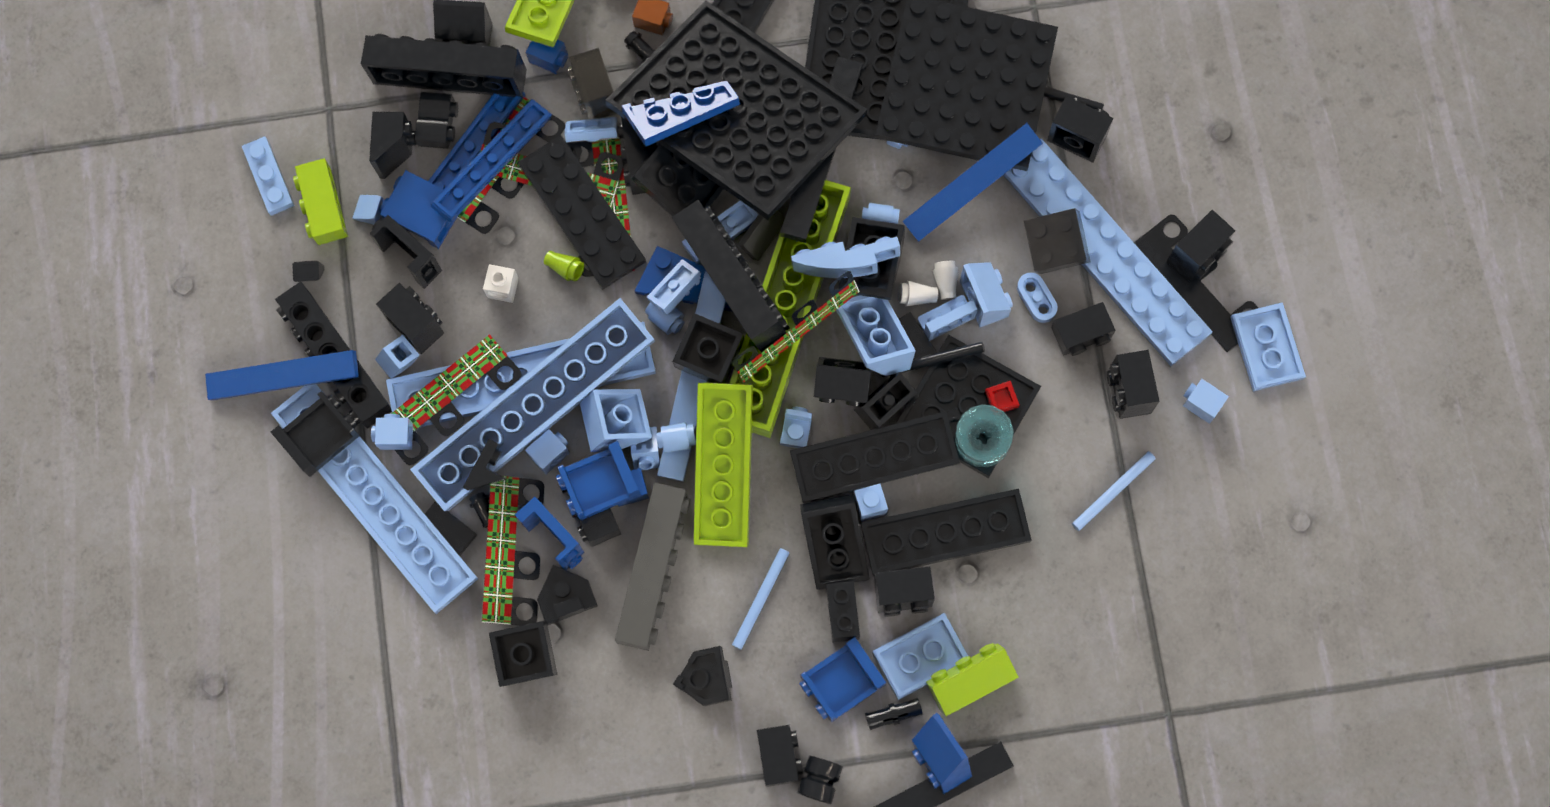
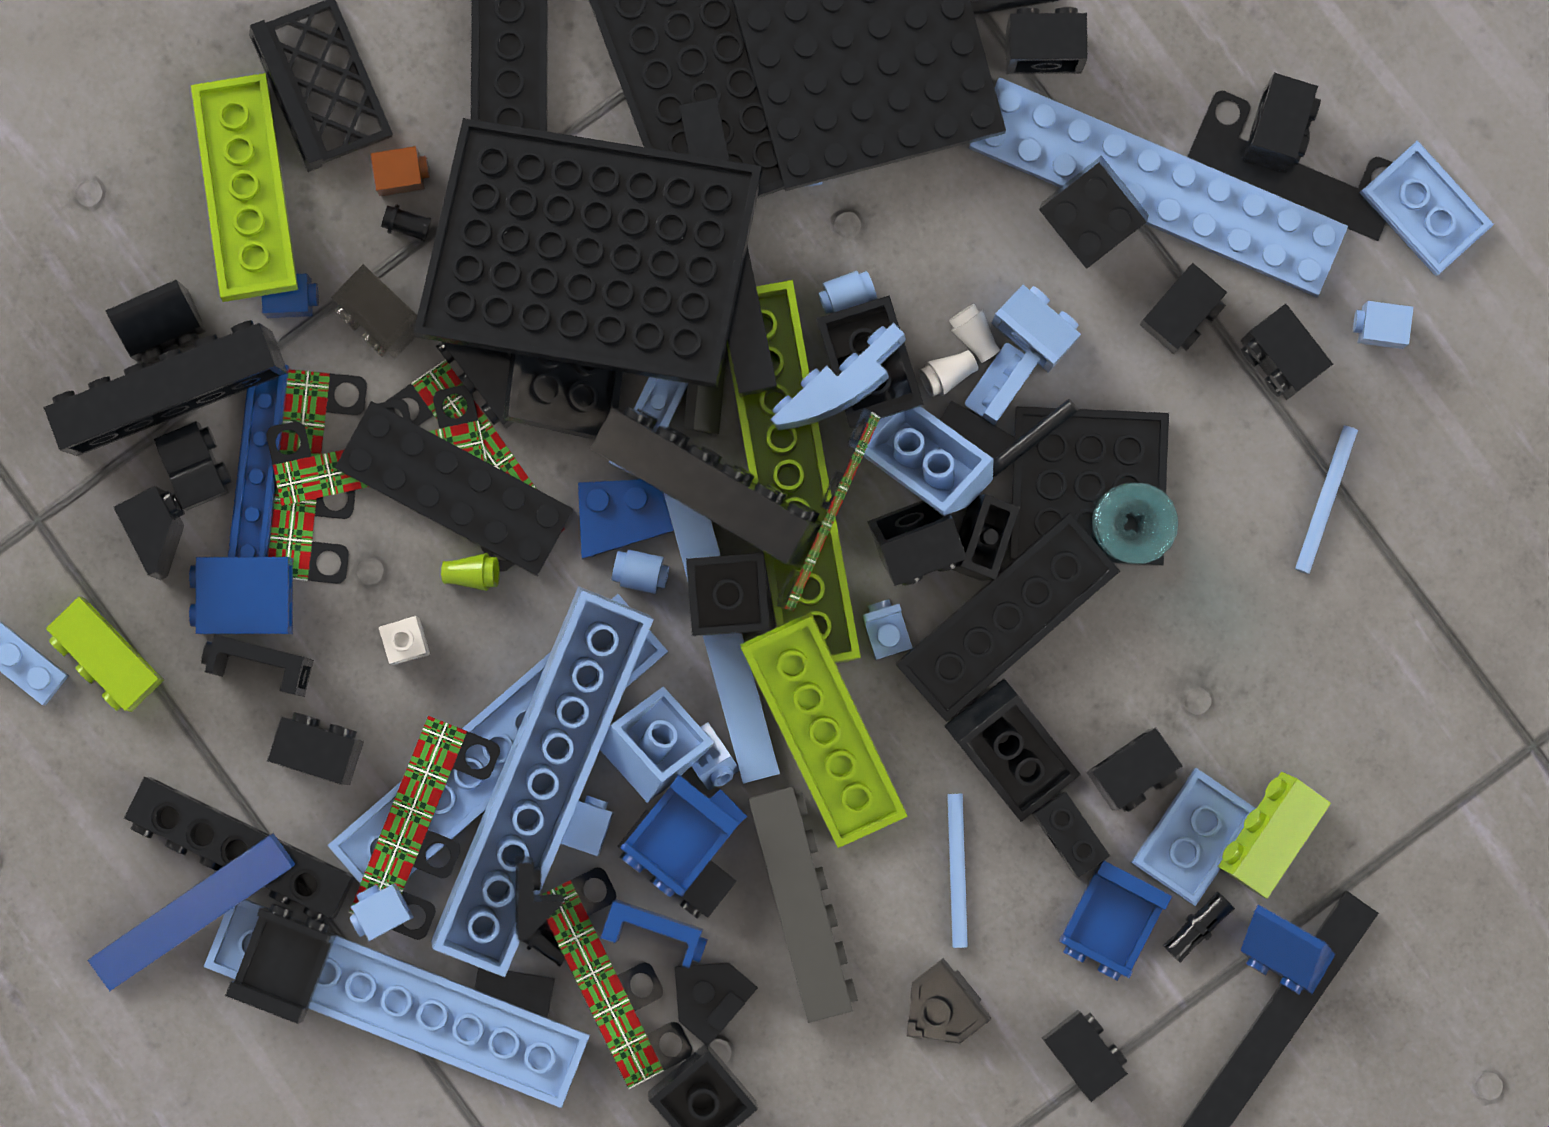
camera: 30 degrees left, 10 degrees up
(307, 271) = (143, 758): black slope -> none
(368, 208) = (171, 630): light blue slope -> none
(397, 357) = (326, 809): light blue brick -> none
(491, 160) = (300, 484): blue tile -> none
(591, 129) = (405, 371): light blue plate -> none
(671, 115) = (513, 312): wing -> none
(674, 286) = (636, 531): light blue plate -> none
(676, 437) = (744, 725): light blue brick -> none
(820, 779) = (1152, 1058): black wheel -> none
(870, 502) = (1032, 677): light blue brick -> none
(946, 532) = (1145, 664): black plate -> none
(972, 182) = (944, 188): blue tile -> none
(1002, 396) = (1128, 455): red tile -> none
(1038, 298) = (1104, 295): light blue plate -> none

